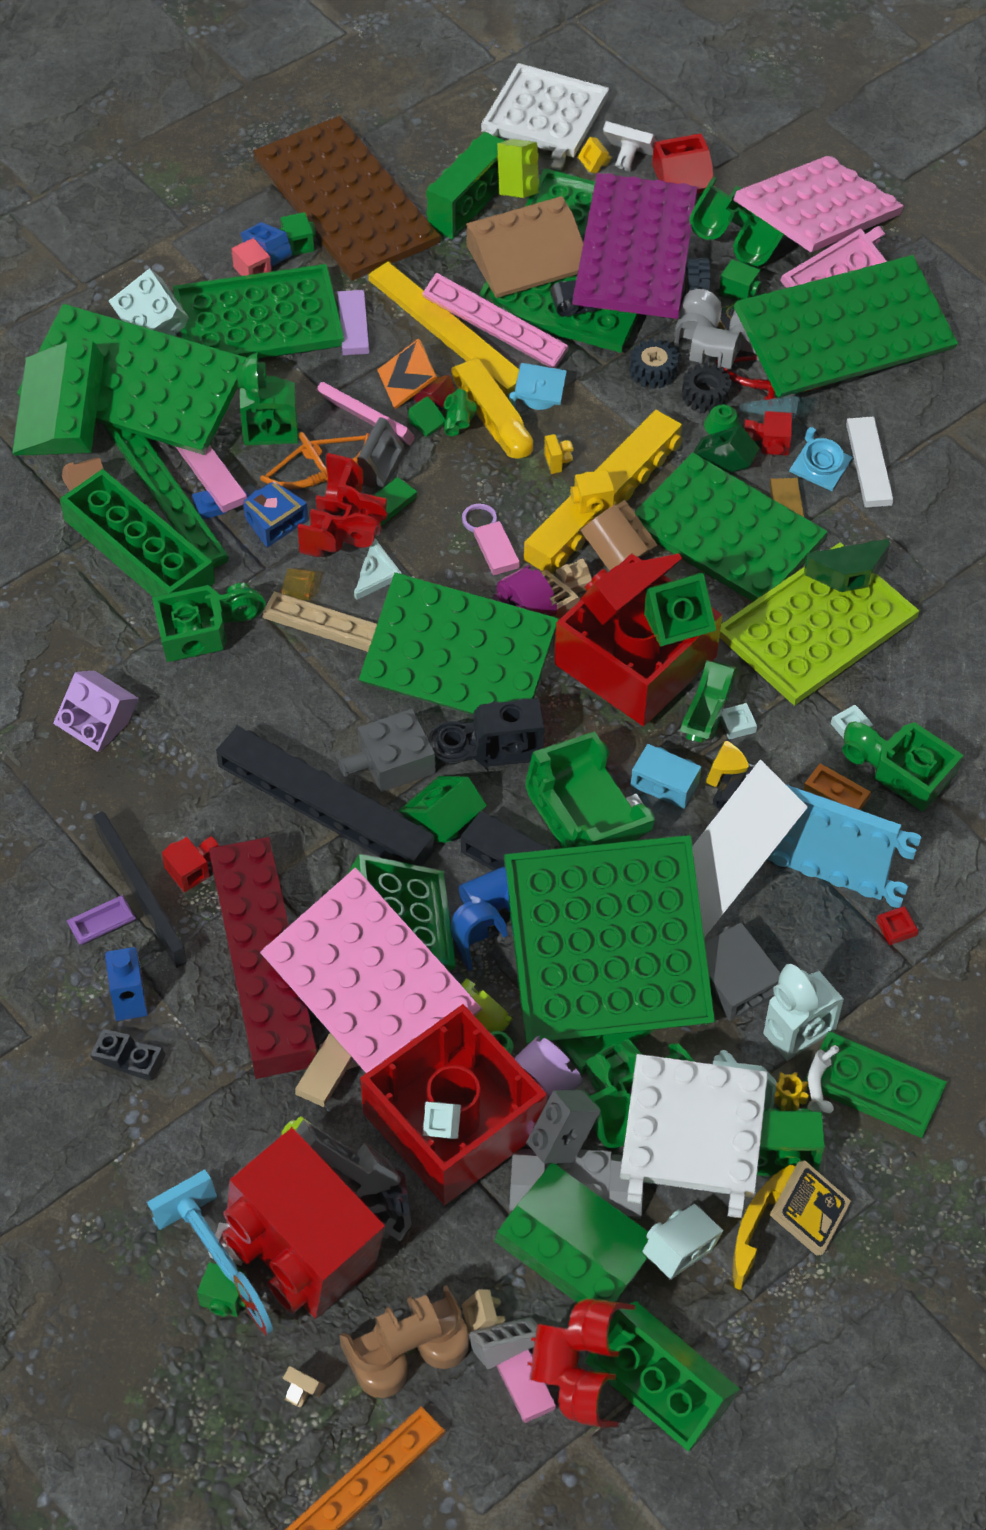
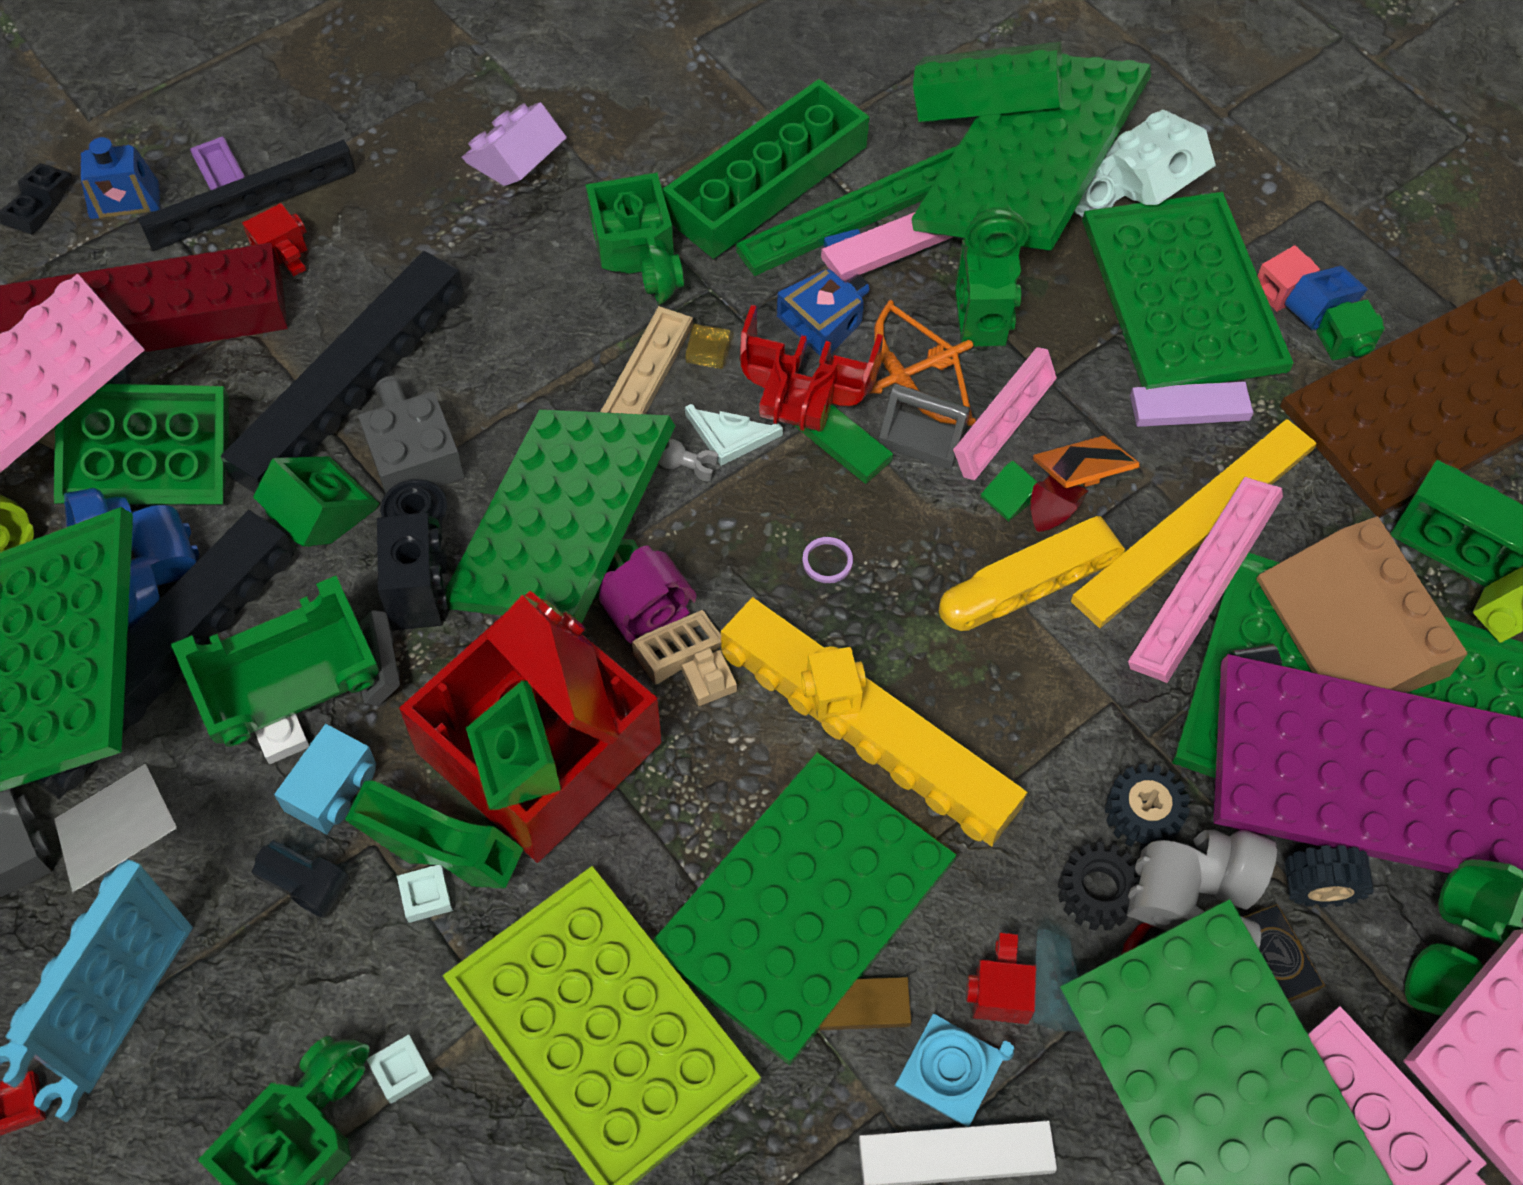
camera: 90 degrees right, 5 degrees up
(77, 473) = (884, 117): nougat tile -> none
(459, 412) = (1024, 526): green plate -> none
(496, 548) = (767, 577): bright pink tile -> none
(538, 386) = (1080, 635): medium azure hat -> none
(557, 453) = (943, 654): yellow tile -> none
(617, 535) = (767, 731): medium nougat brick -> none
(720, 419) = (1026, 908): green cone -> none
(728, 449) = (959, 908): dark green slope -> none
(728, 761) = (321, 858): yellow tile -> none
(739, 281) = (1353, 956): green brick -> none
(836, 787) = (267, 1029): orange plate -> none
(848, 566) = (690, 1079): dark green slope -> none

